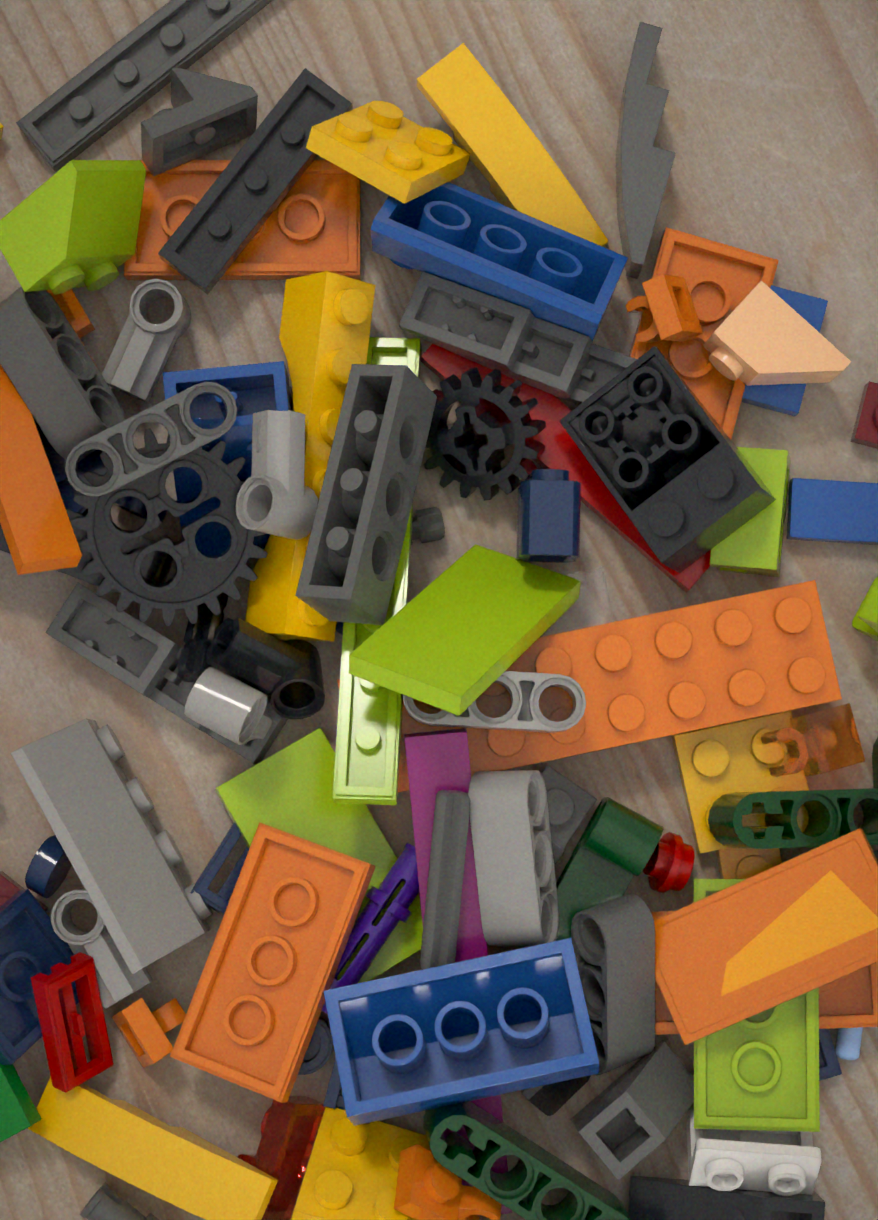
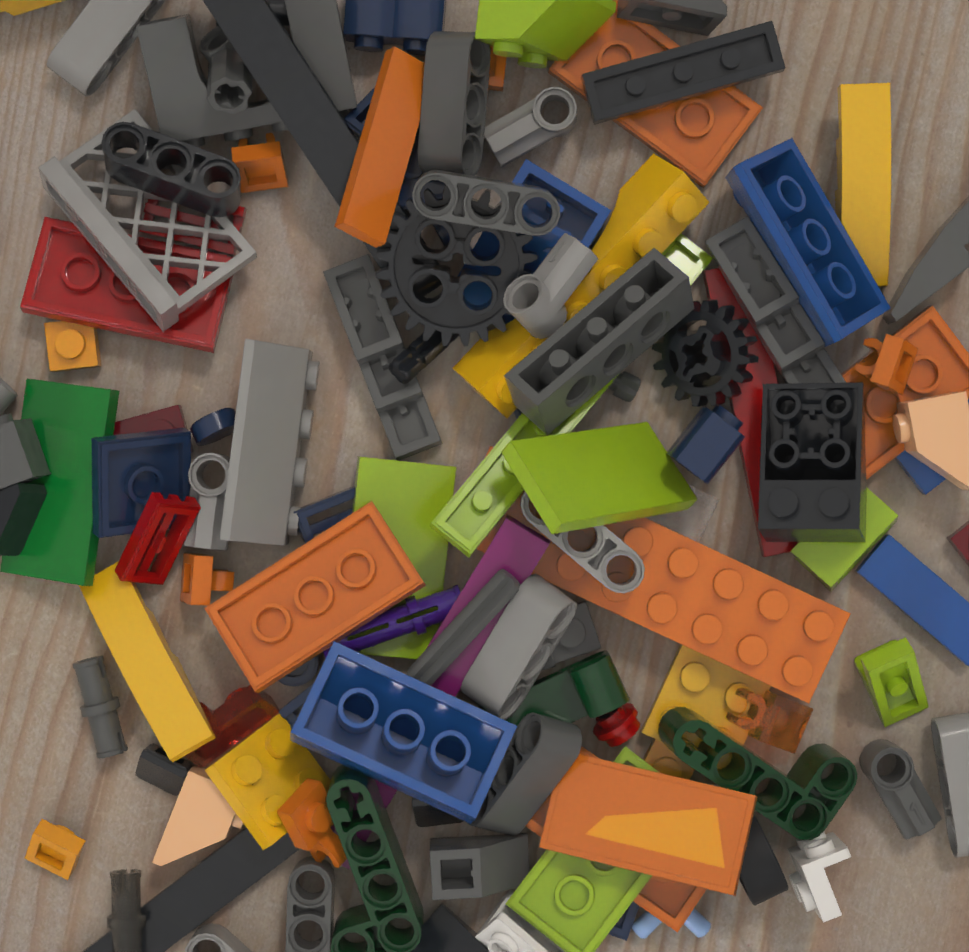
camera: 40 degrees right, 5 degrees up
(228, 707) = (406, 412): light grey piece -> none
(281, 669) = (458, 410): black piece -> none
(389, 150) = (785, 119): yellow plate -> none

